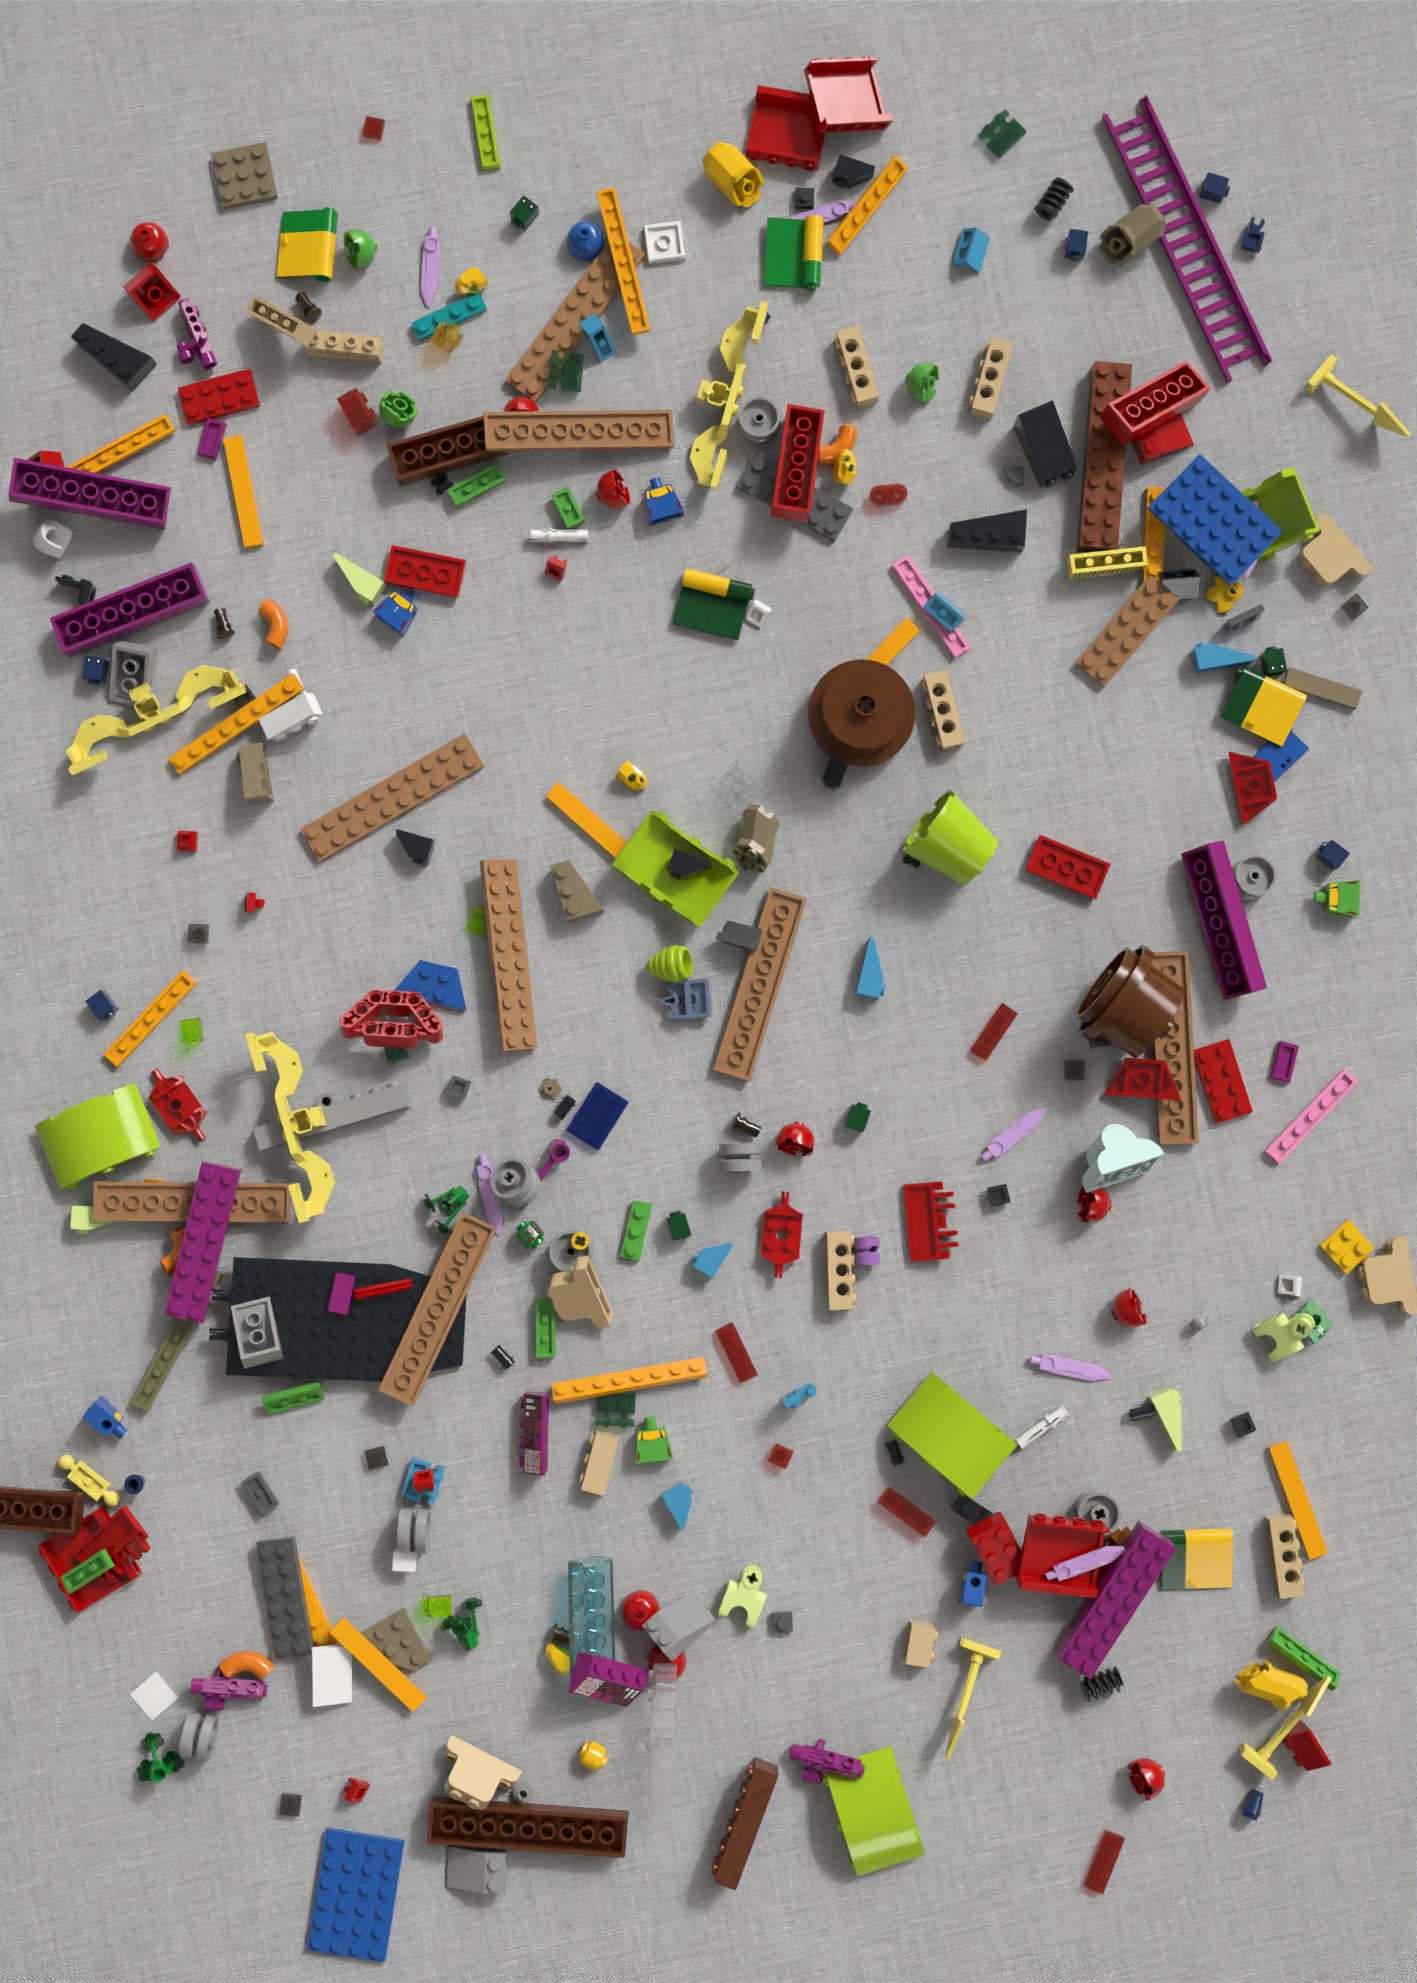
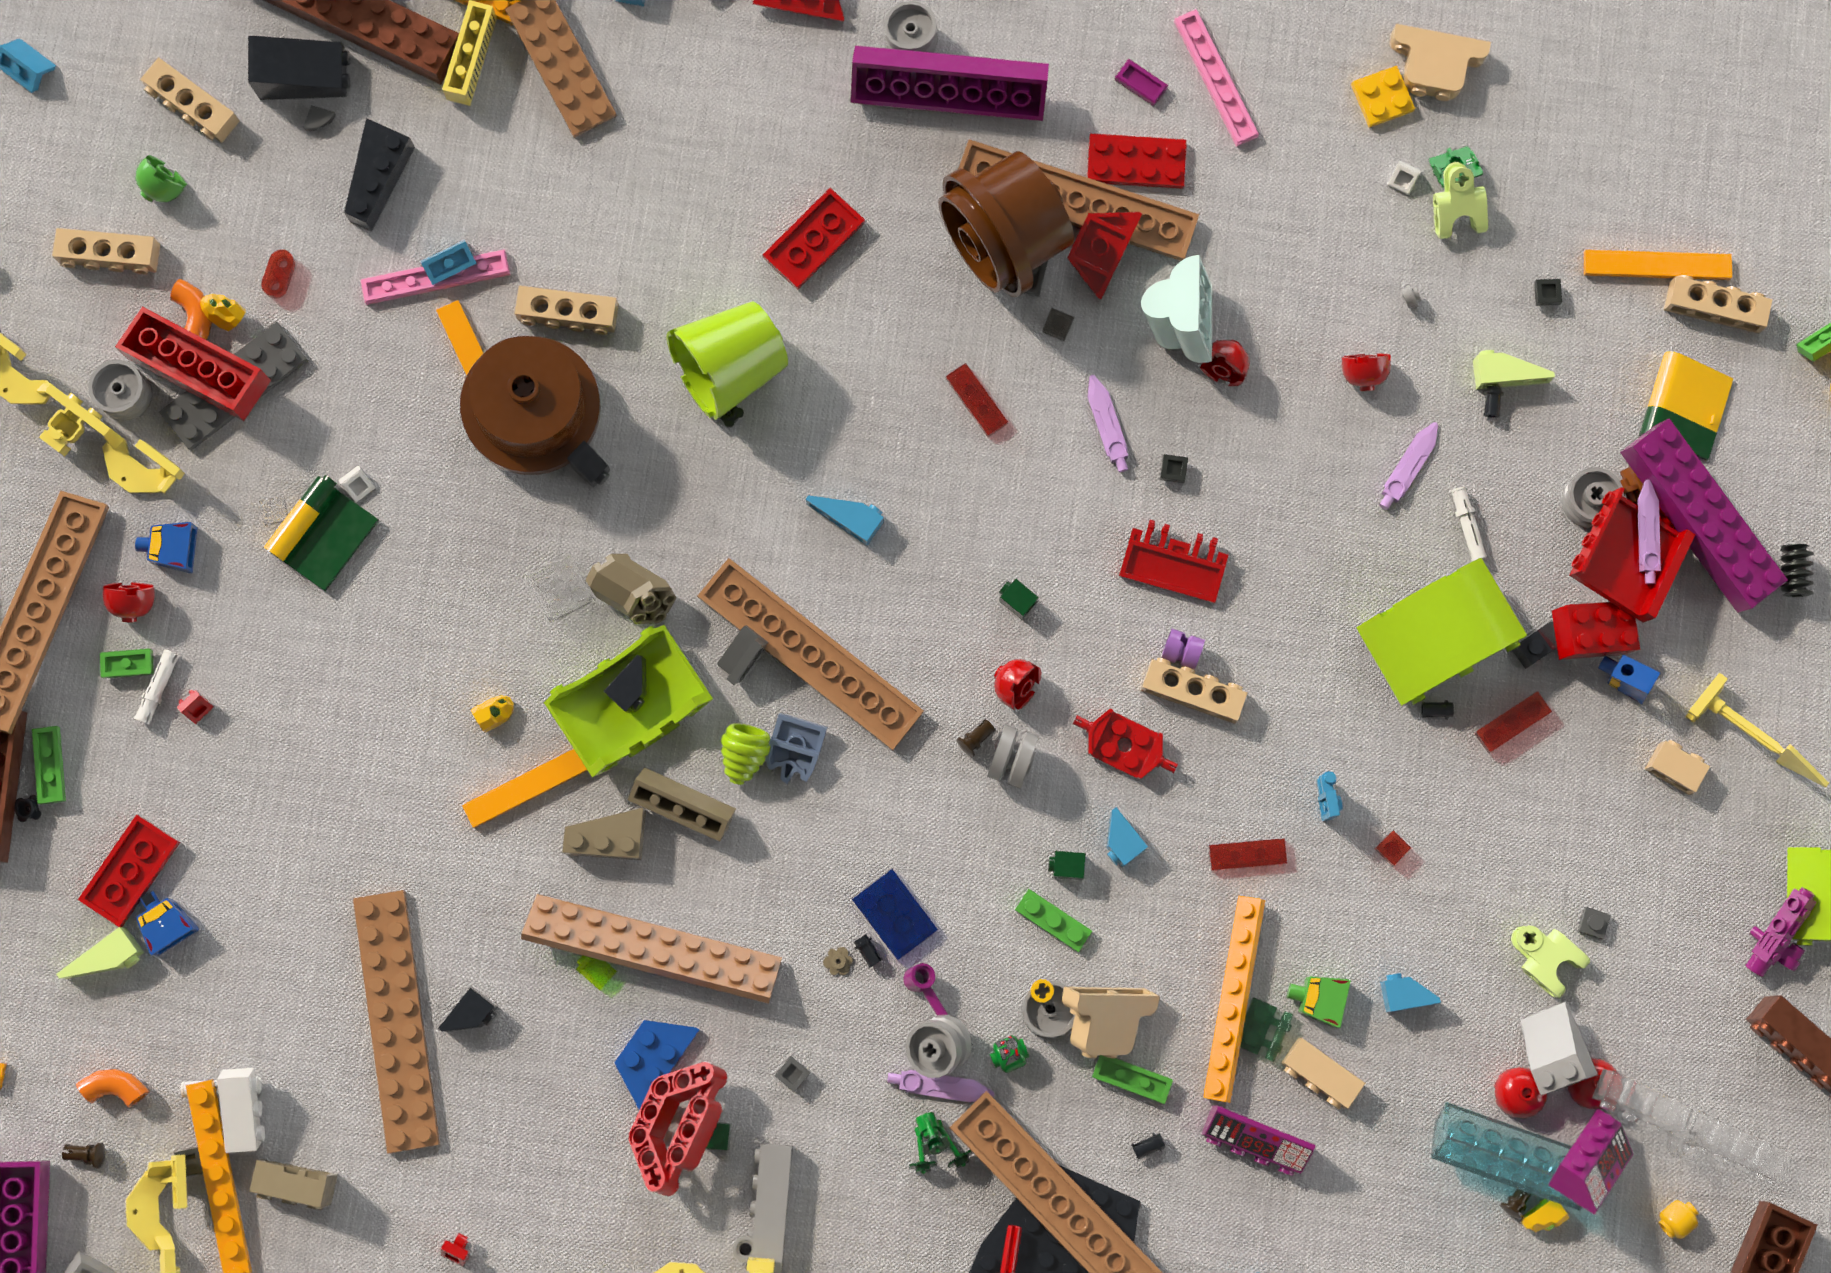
camera: 70 degrees left, 5 degrees down
(617, 935) = (681, 804): none -> dark tan brick

